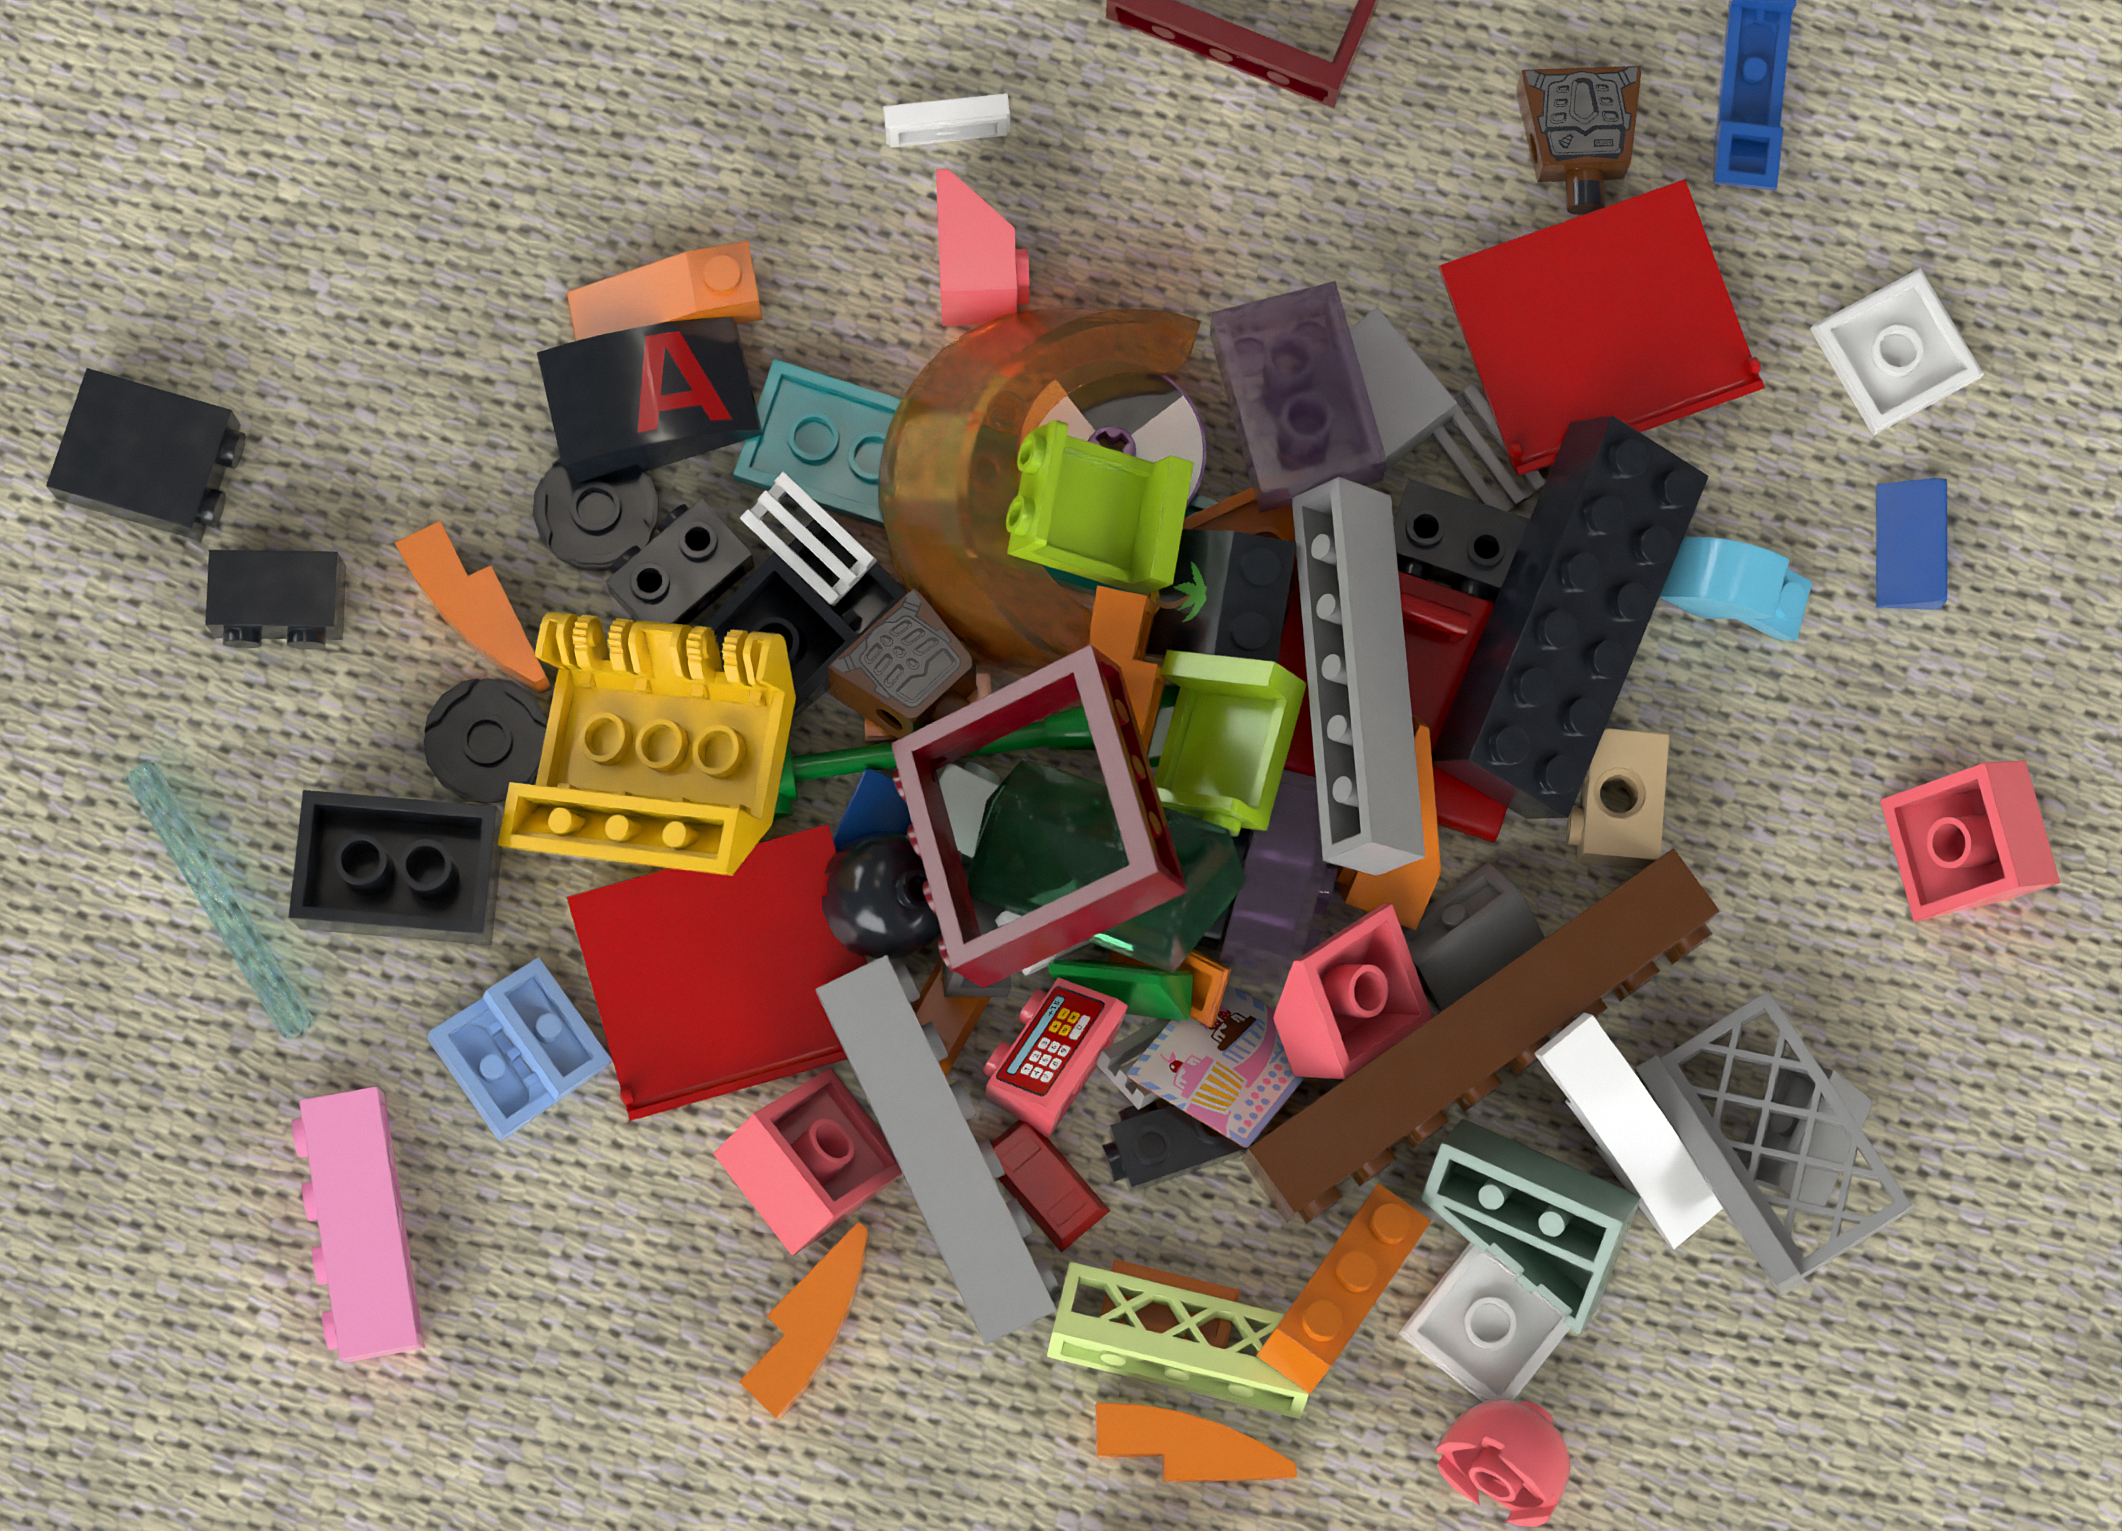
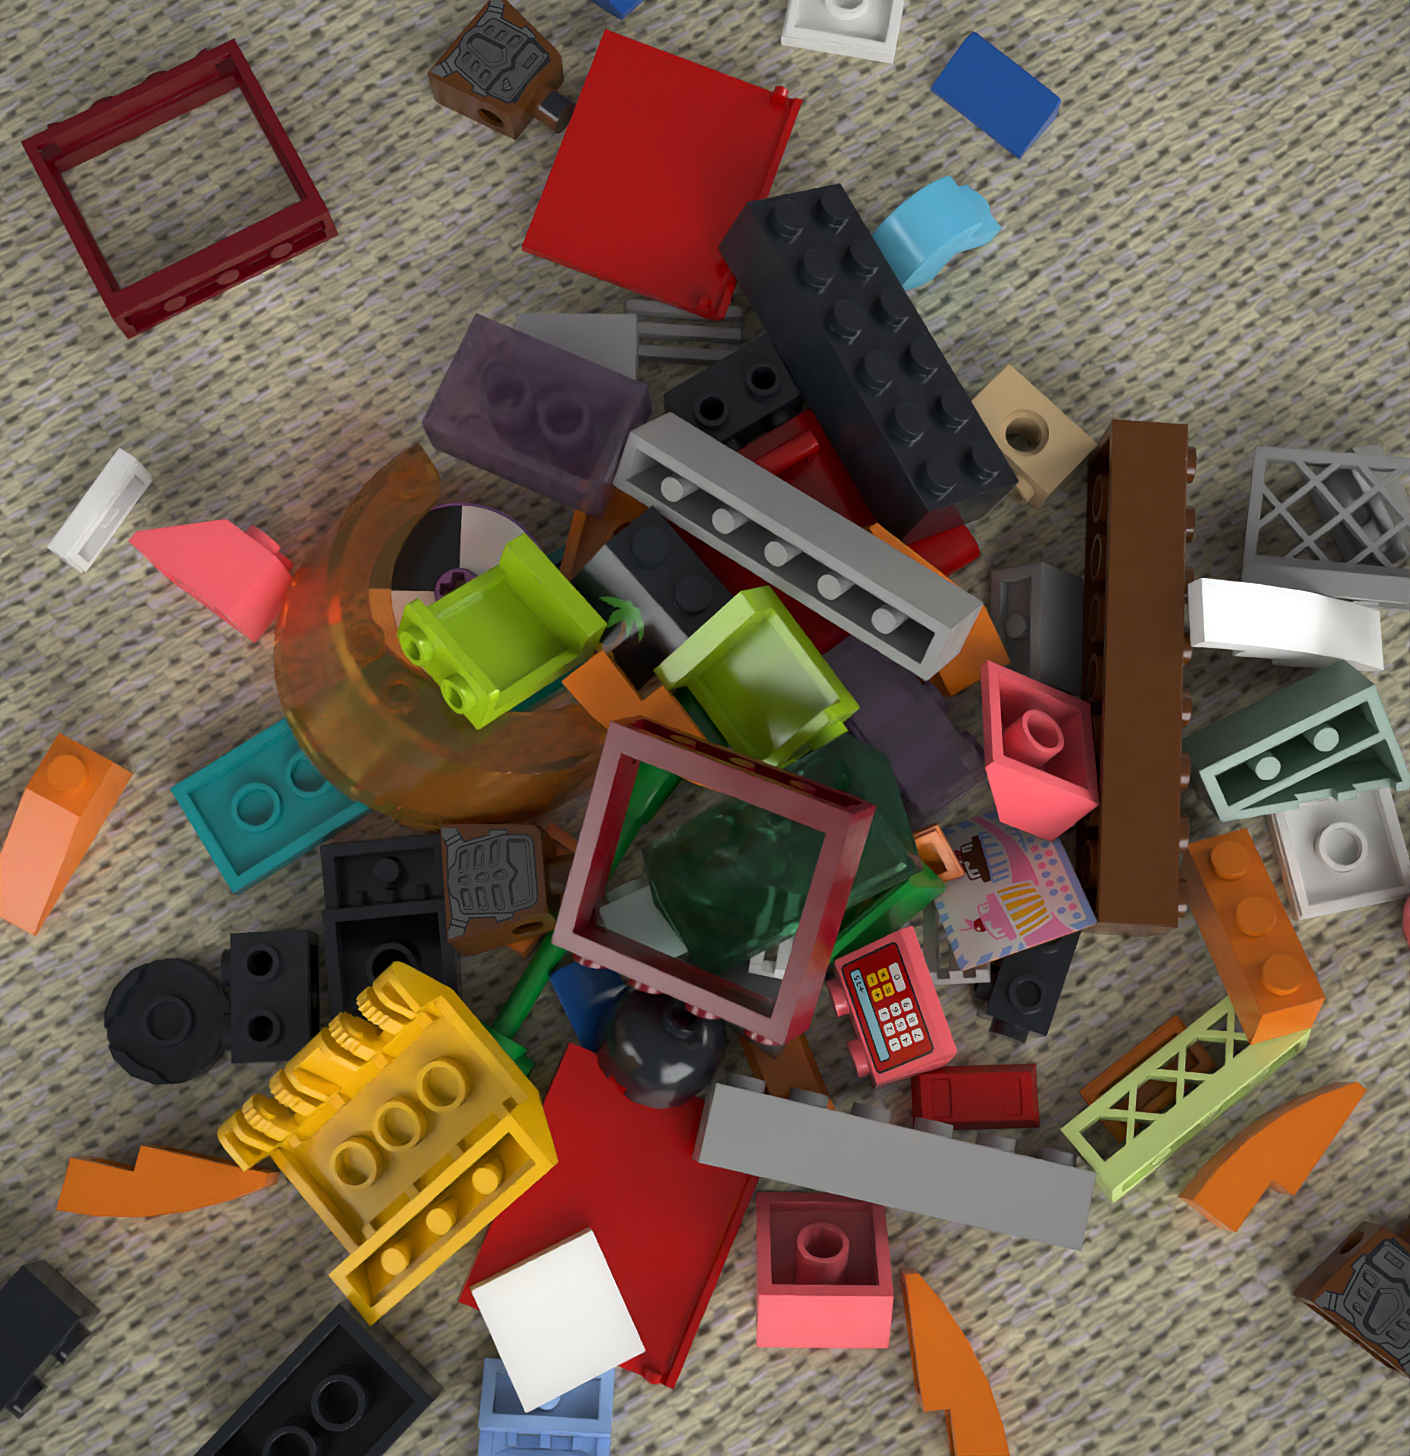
camera: 50 degrees left, 0 degrees up
(495, 754) = (300, 1250): black tile -> none
(613, 984) = (557, 1319): none -> white tile
(648, 396) = (113, 910): black slope -> none
(769, 502) = (278, 882): white tile -> none
(1970, 839) = (1246, 226): coral slope -> none

